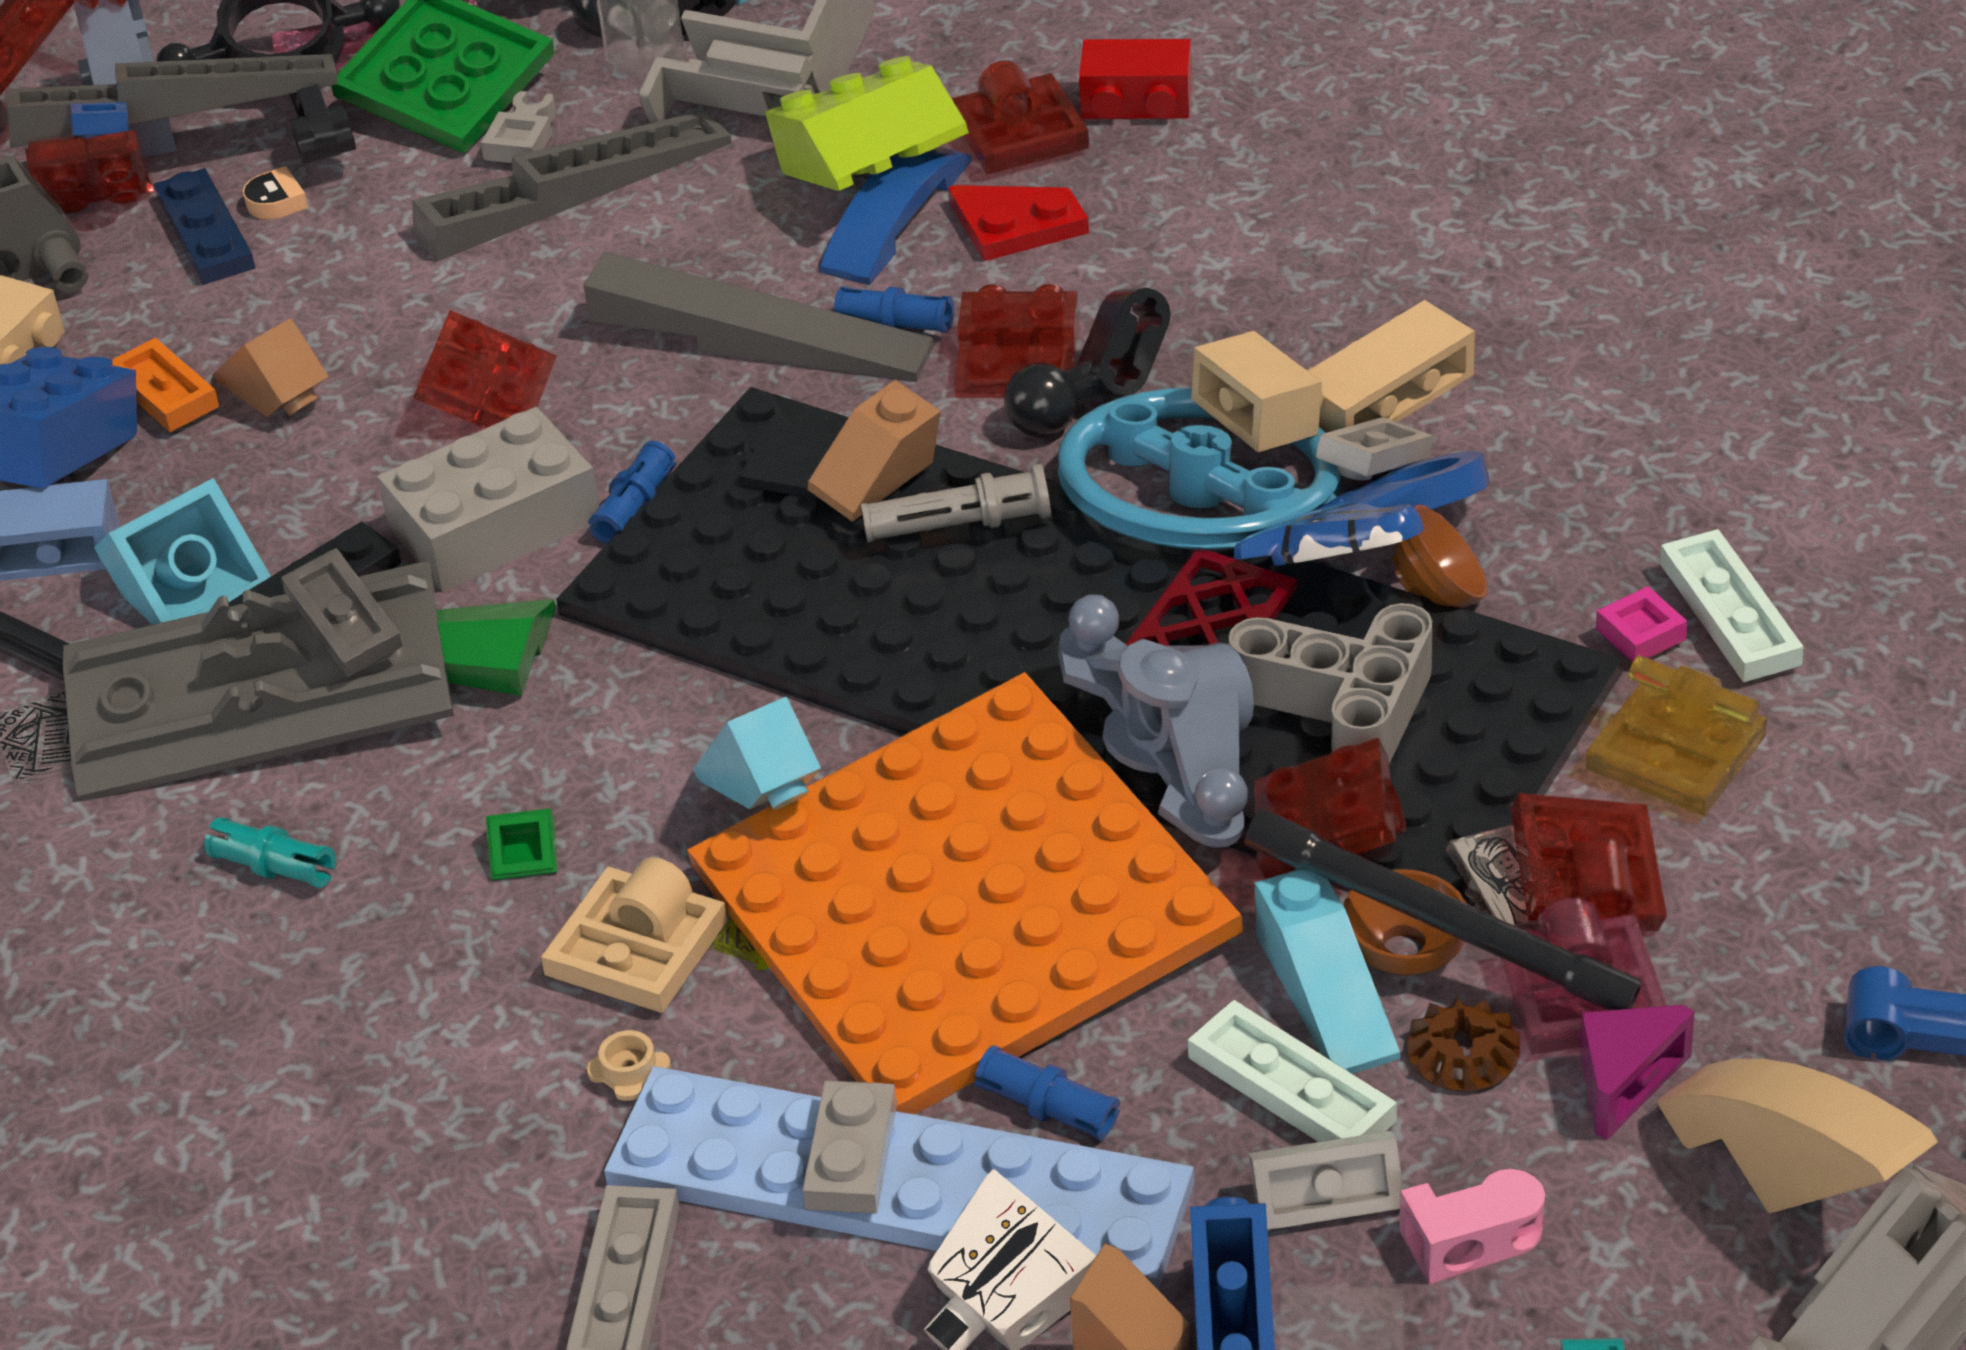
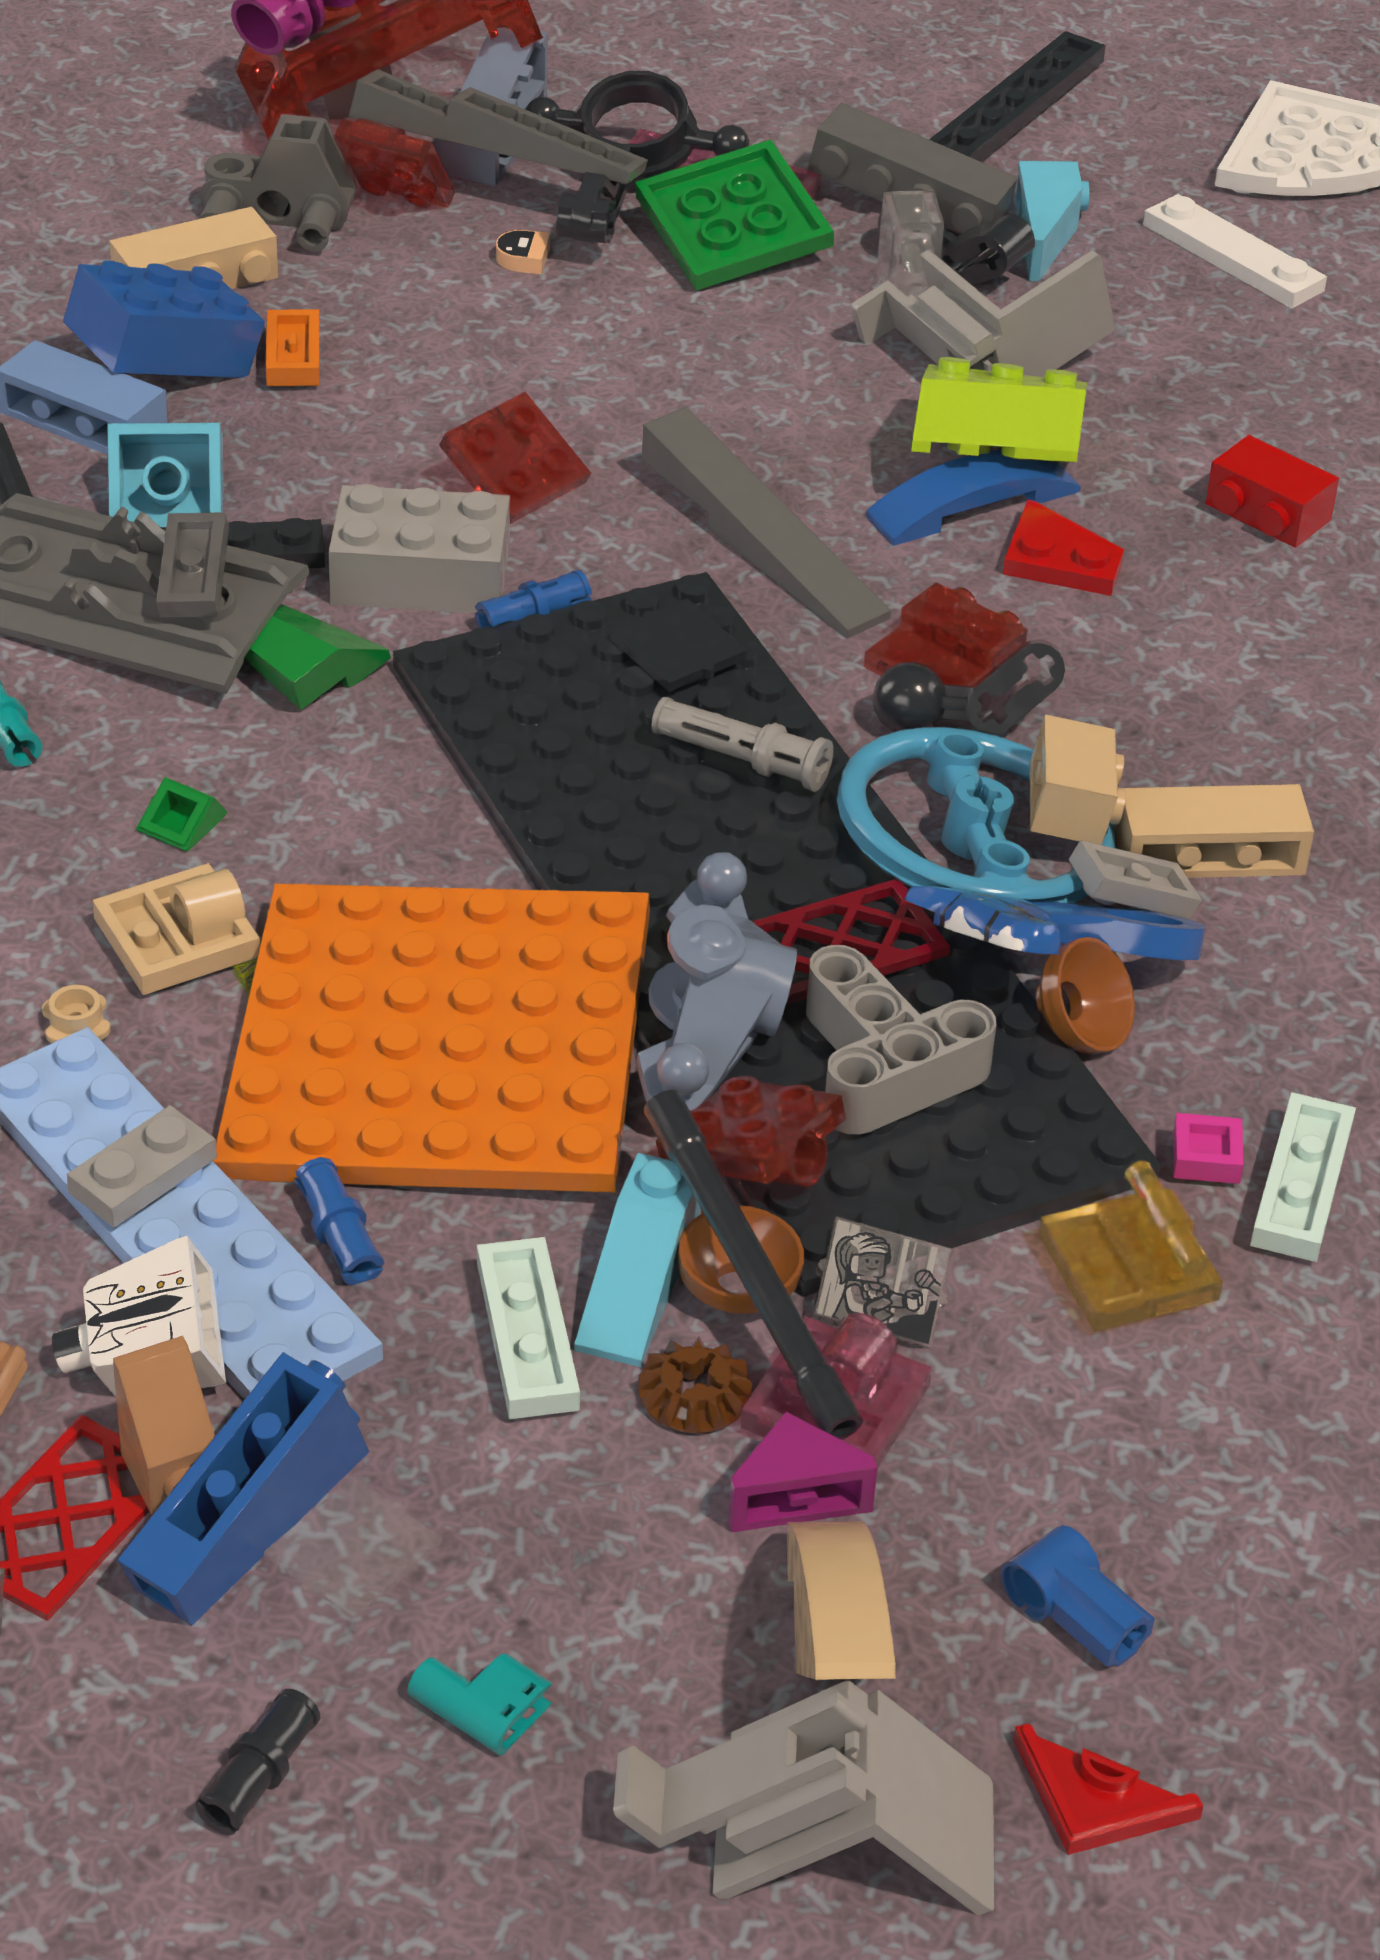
camera: 30 degrees right, 0 degrees up
(99, 118) = (417, 121): blue plate -> none
(204, 226) = (449, 249): dark blue plate -> none
(274, 371) = (372, 376): medium nougat slope -> none
(520, 131) = (746, 295): light grey plate -> none
(560, 179) = (742, 344): dark grey slope -> none
(760, 758) = (372, 838): medium azure slope -> none
(877, 450) = (720, 662): medium nougat slope -> none
(897, 308) = (878, 569): blue pin -> none
(1019, 119) = (1137, 483): clear red plate -> none
(1327, 1179) = (463, 1416): light grey plate -> none
(1472, 1224) = (540, 1523): bright pink leg -> none
(1588, 853) = (940, 1300): clear red plate -> none

